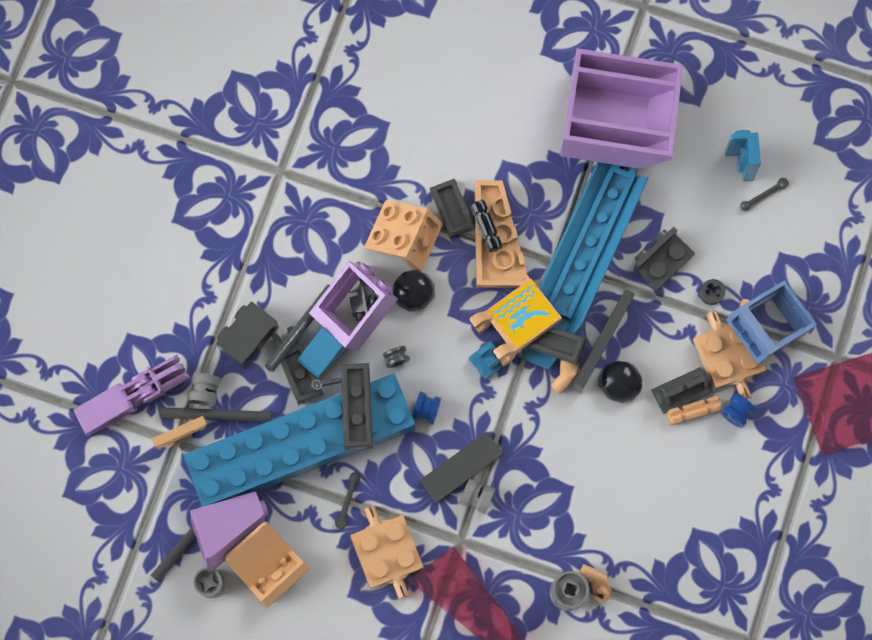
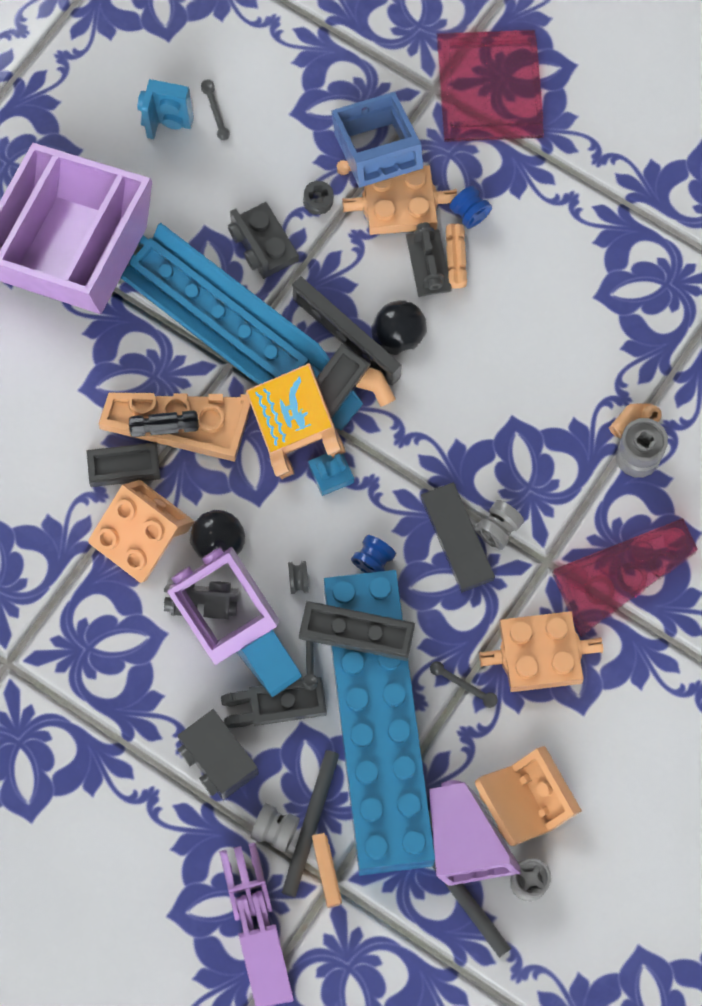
camera: 75 degrees left, 5 degrees down
(292, 337) = (230, 685): dark grey bar -> none

